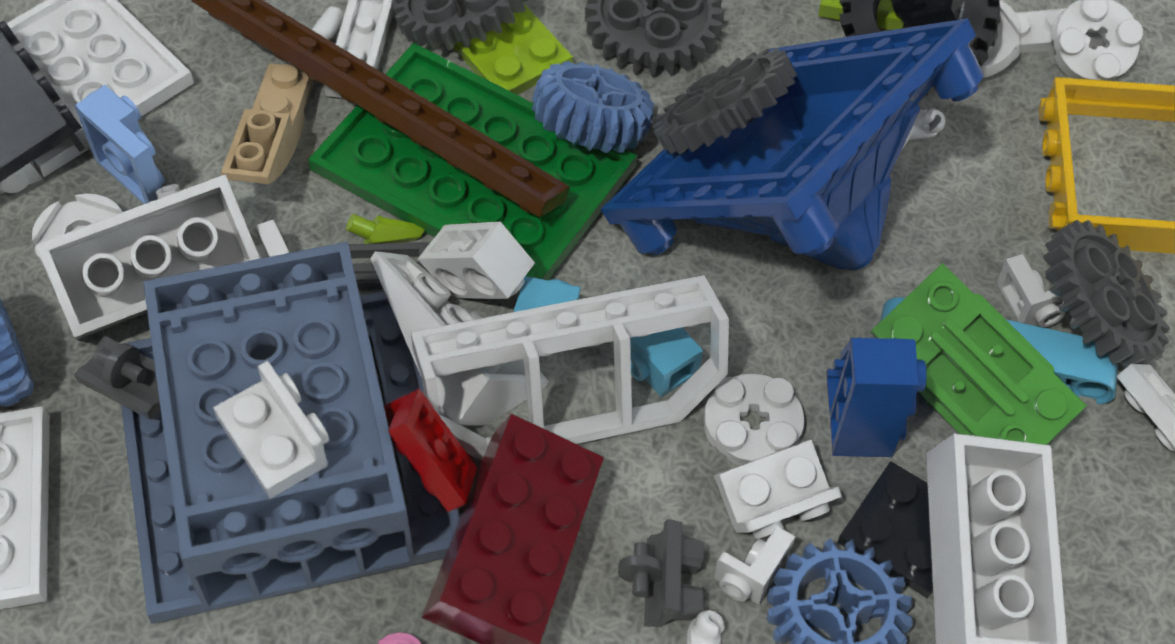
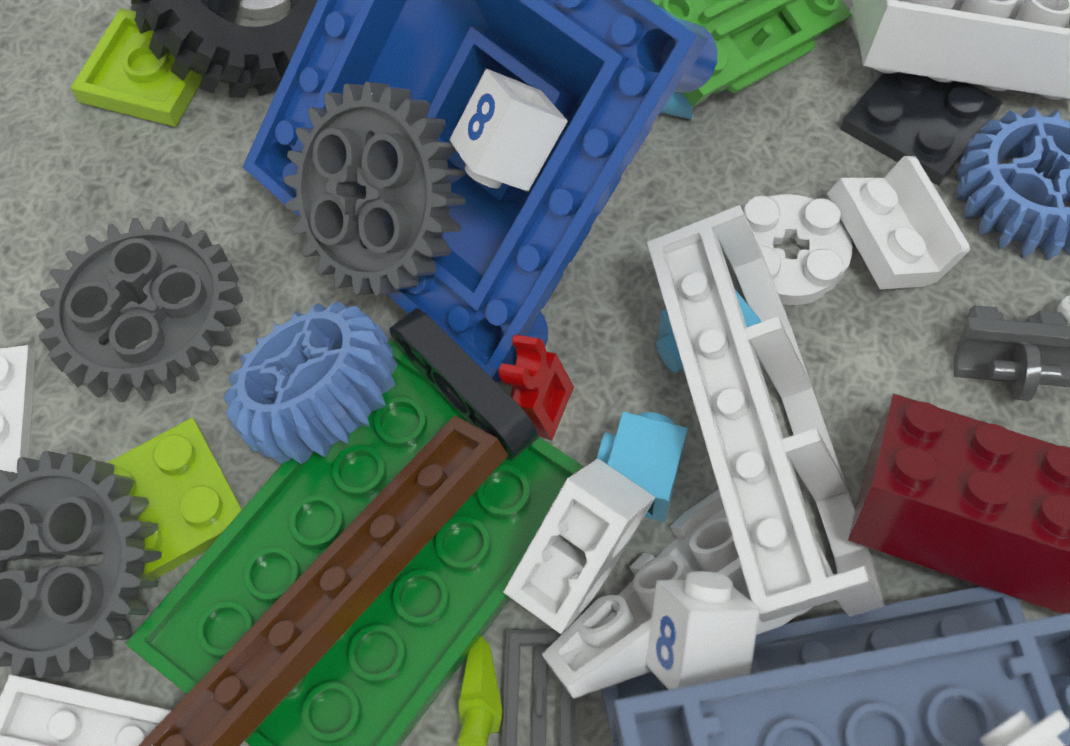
camera: 80 degrees left, 5 degrees up
(401, 309) = (700, 630): none -> white brick
(430, 448) = (940, 596): red bracket -> none
(593, 190) = (463, 382): none -> black beam
(600, 243) = (538, 384): none -> red plate
(748, 145) = (506, 132): none -> white brick
(756, 575) = (1002, 248): white bracket -> none
(873, 395) = (793, 98): blue wedge -> none

